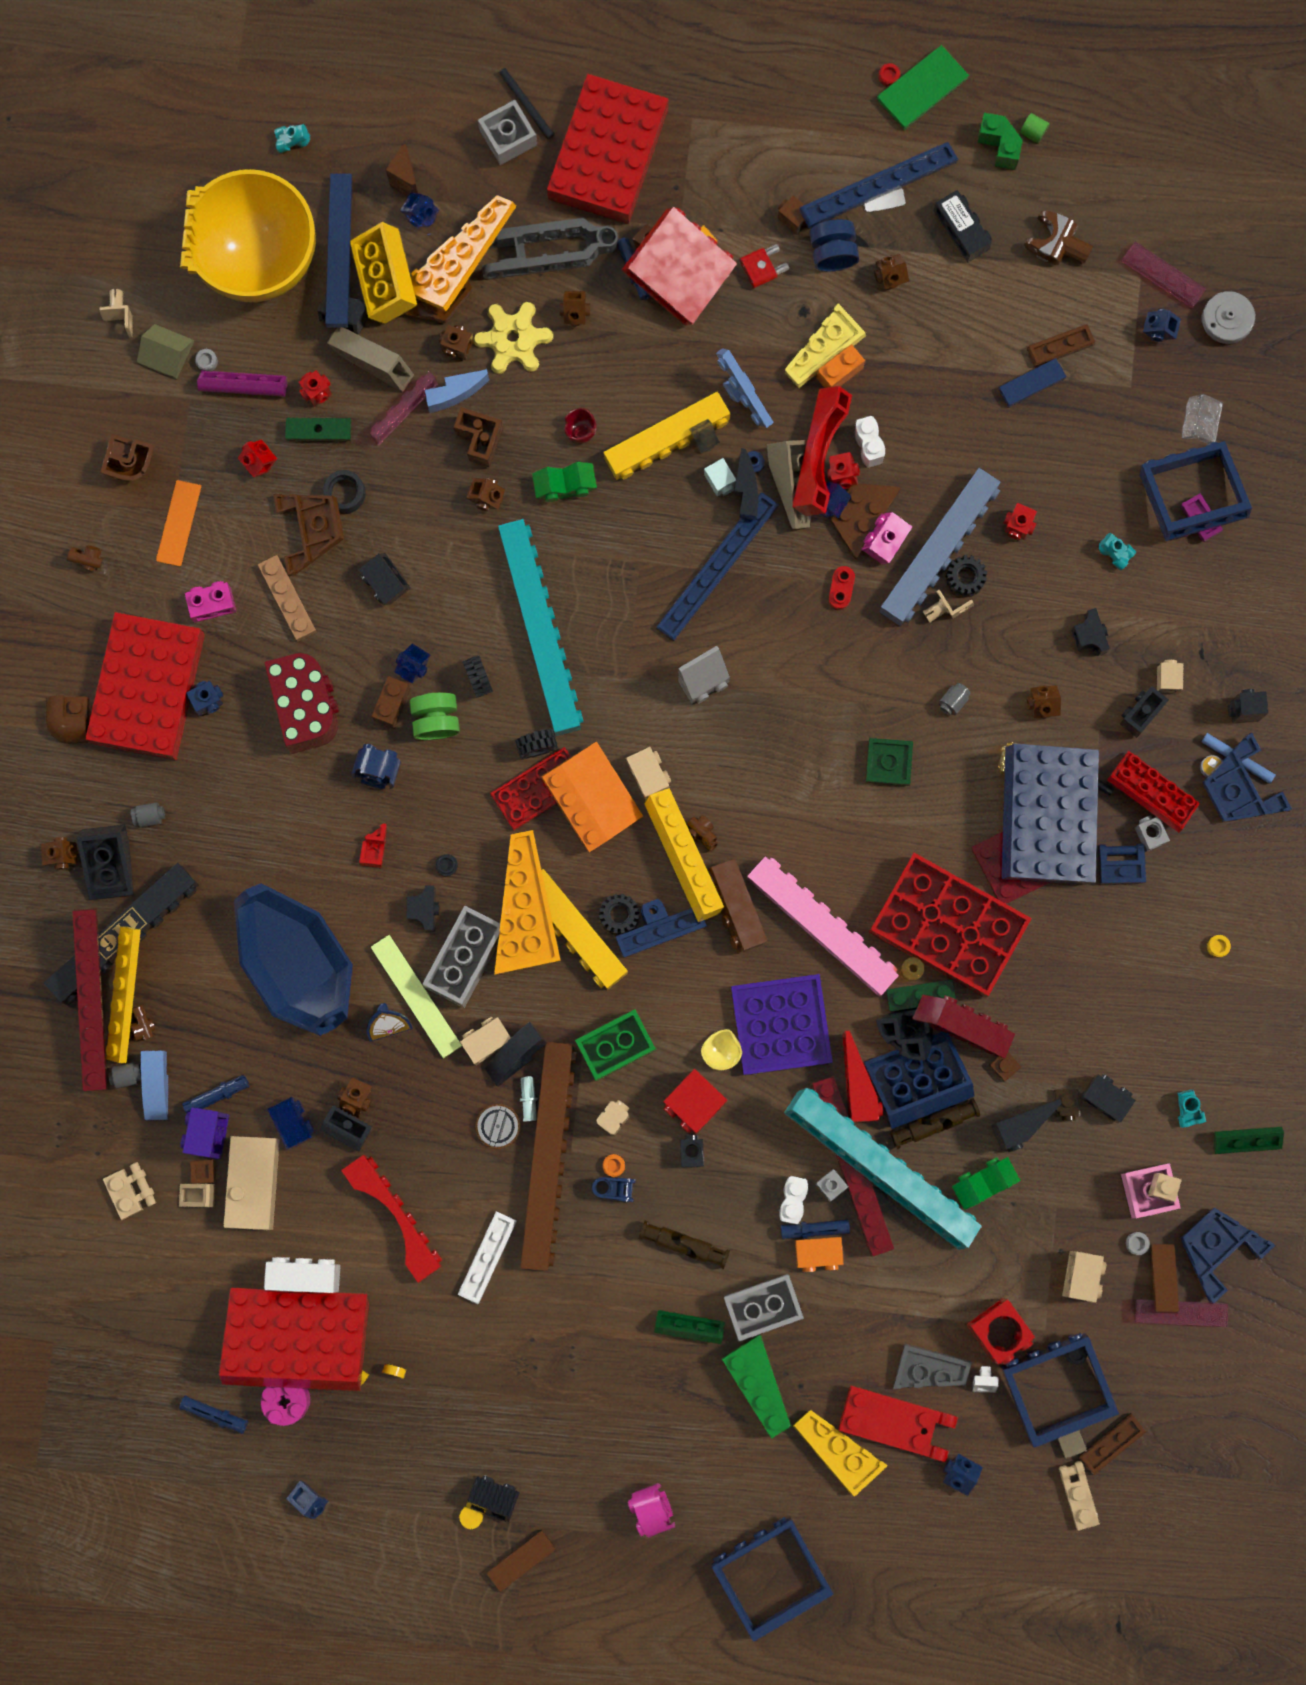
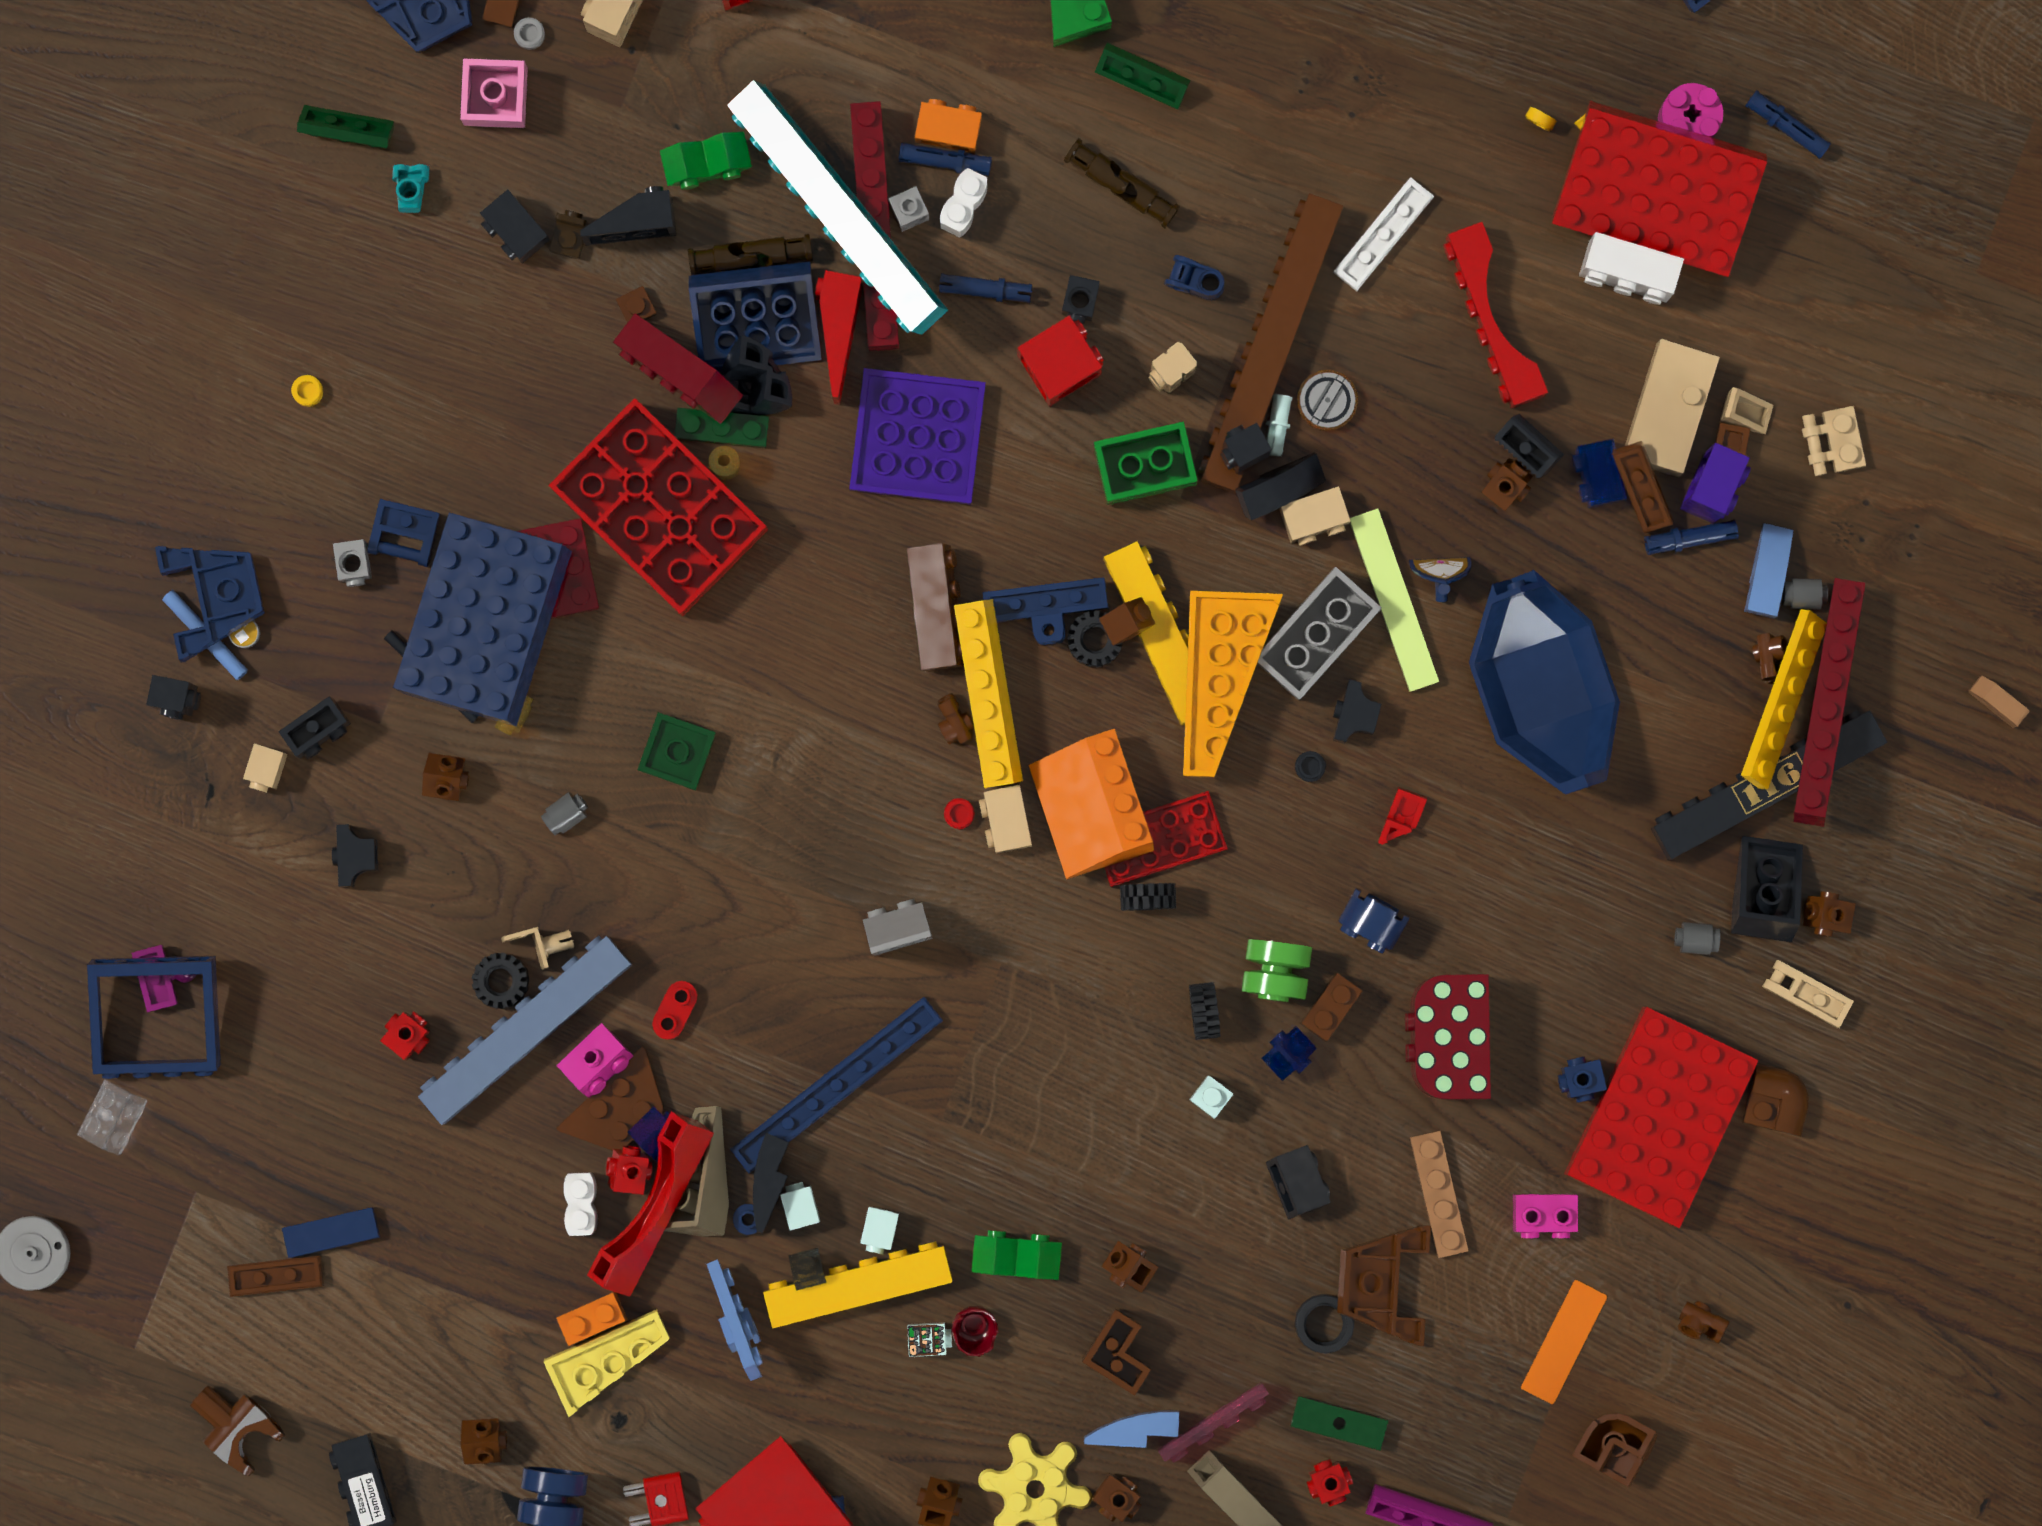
camera: 170 degrees left, 5 degrees up
(61, 796) = (1809, 994): none -> tan plate
(257, 457) = (1434, 1402): red brick -> none
(257, 1120) = (1642, 487): none -> reddish brown tile
(459, 621) = (1211, 1096): none -> light aqua brick
(539, 627) = (1102, 1061): teal brick -> none
(547, 1069) = (1244, 448): none -> black brick
(599, 927) = (1127, 621): none -> reddish brown brick
(610, 413) = (928, 1339): none -> brick
(613, 1165) = (1187, 310): orange tile -> none
(662, 477) = (879, 1230): none -> light aqua brick
(682, 770) = (959, 813): none -> red tile
(721, 1050) = (1006, 421): light yellow helmet -> none
(761, 1143) = (986, 288): none -> dark blue pin
(763, 1307) = (1040, 75): light grey brick -> none
(822, 926) = (827, 551): bright pink brick -> none
(1117, 550) = (284, 961): teal plate -> none
(1153, 791) = (334, 616): red tile -> none
(1161, 325) = (129, 1263): dark blue brick -> none
(1163, 274) = (102, 1341): clear pink plate -> none
(1164, 1187) = (477, 87): tan brick -> none

